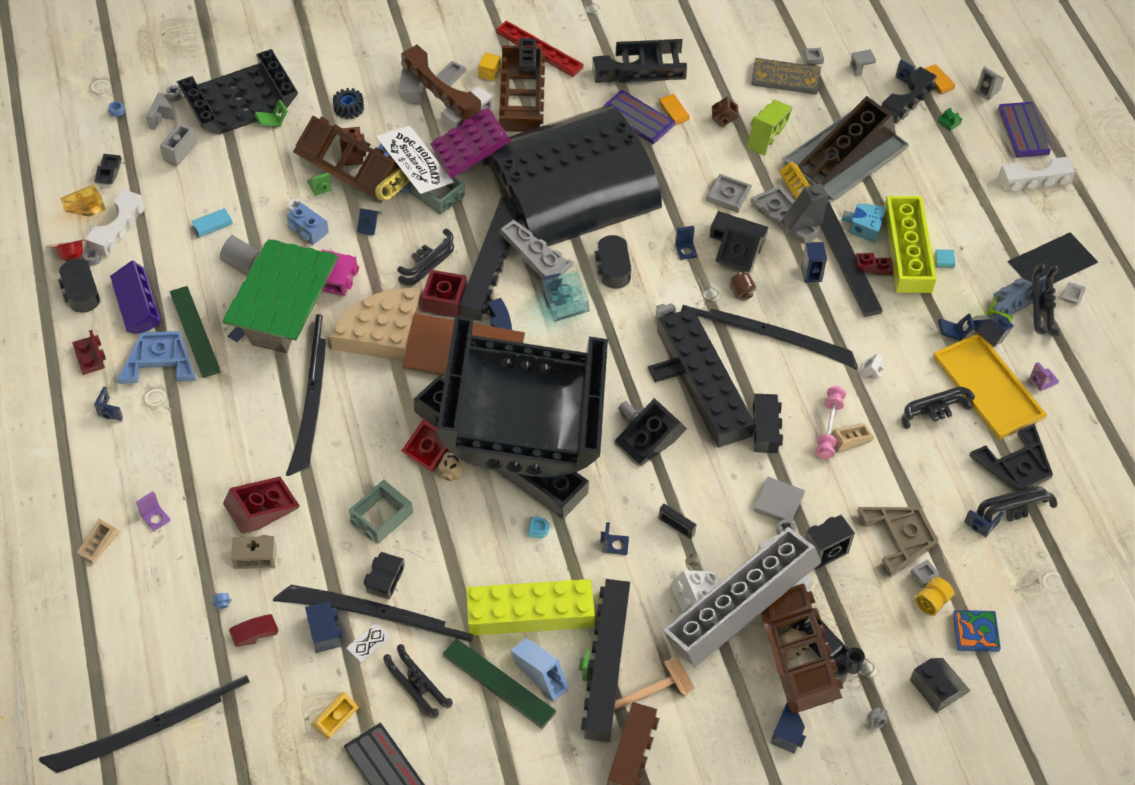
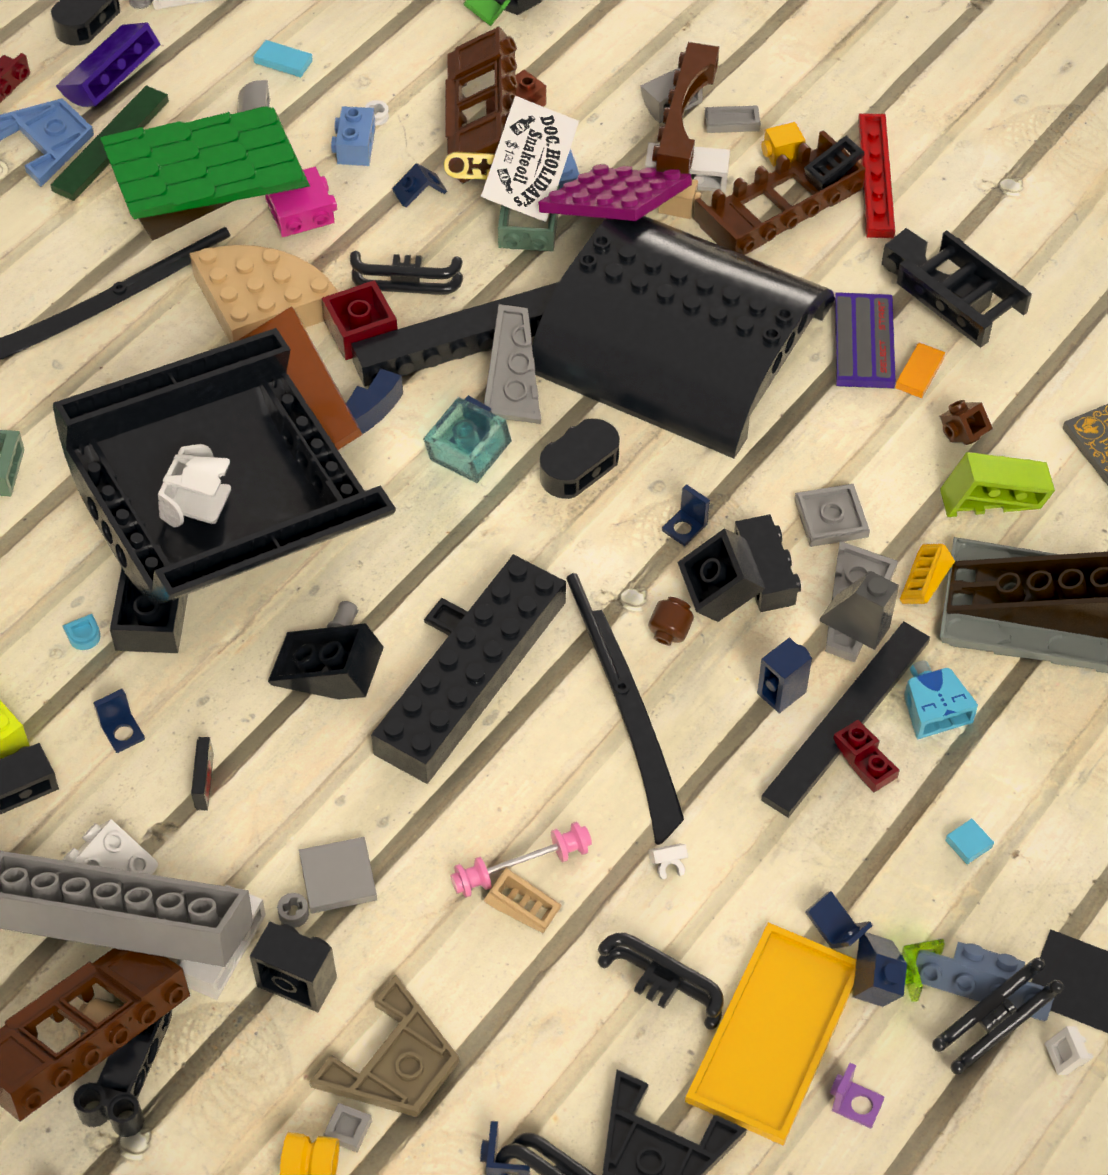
camera: 55 degrees right, 0 degrees up
(320, 184) = (427, 109): bright green bracket -> none
(353, 109) = (592, 60): black bush -> none
(524, 418) = (194, 486): none -> white piece
(664, 310) = (542, 558): light grey tile -> none
(767, 423) = (453, 783): black brick -> none
(909, 244) = (938, 775): neon yellow brick -> none

